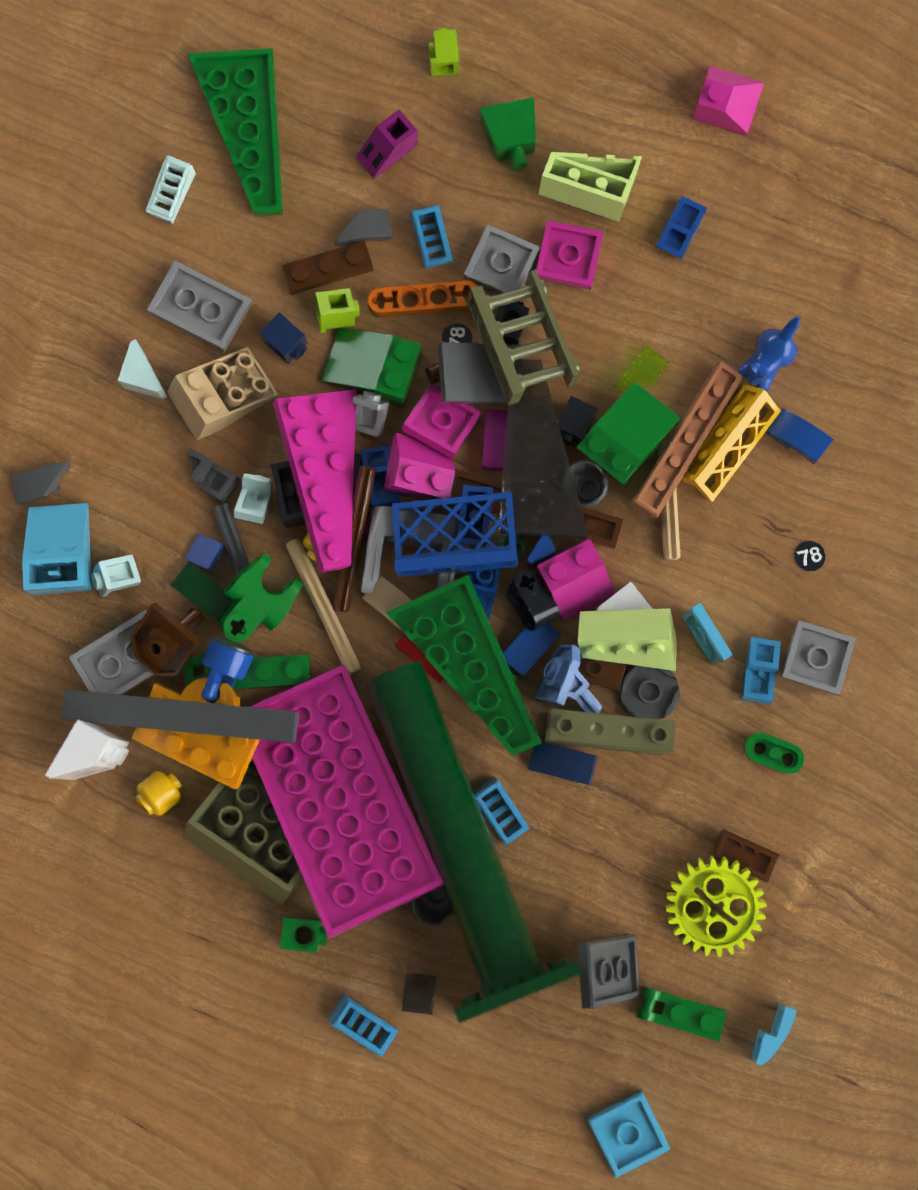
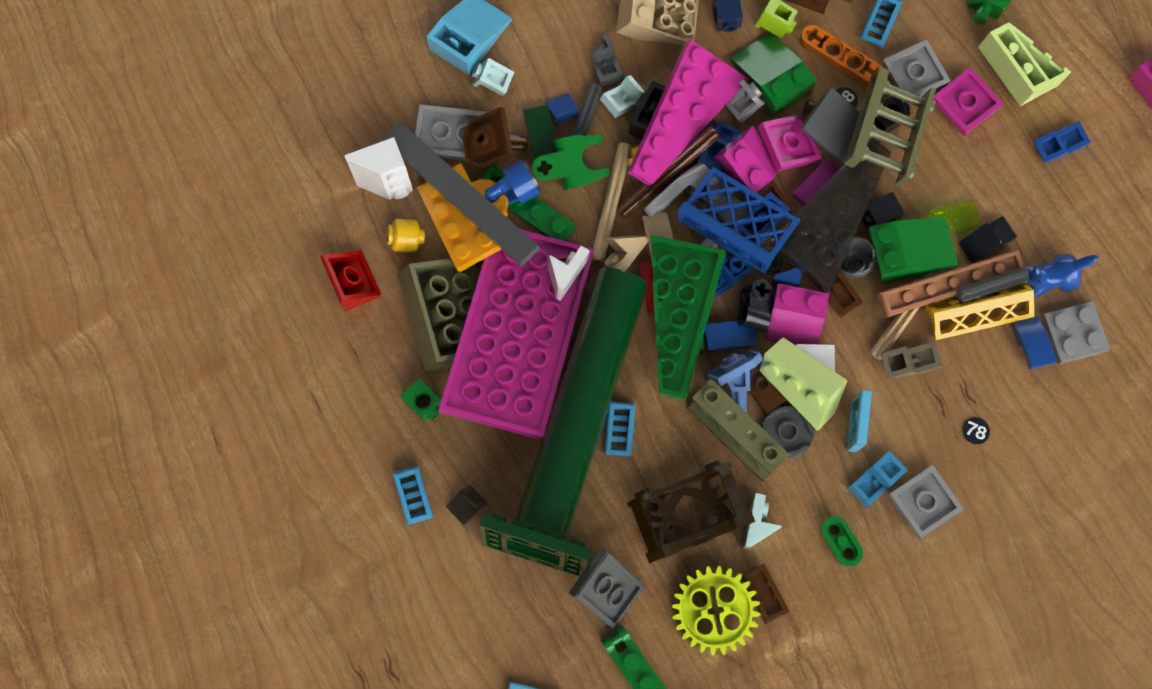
camera: 40 degrees right, 5 degrees down
(141, 874) = (350, 278): none -> red slope
(338, 716) = (564, 274): none -> white slope
(375, 642) = (626, 250): none -> tan slope
(432, 907) = (522, 451): dark grey hair -> none
(563, 763) = (689, 430): dark blue slope -> none
(631, 879) = (668, 541): none -> dark brown fence
(686, 371) = (987, 239): none -> black slope
(693, 805) = (758, 530): none -> light aqua slope
(707, 538) = (911, 361): none -> dark tan slope
(724, 412) = (992, 285): none -> dark grey axle
(827, 396) = (1075, 332): none -> light grey plate

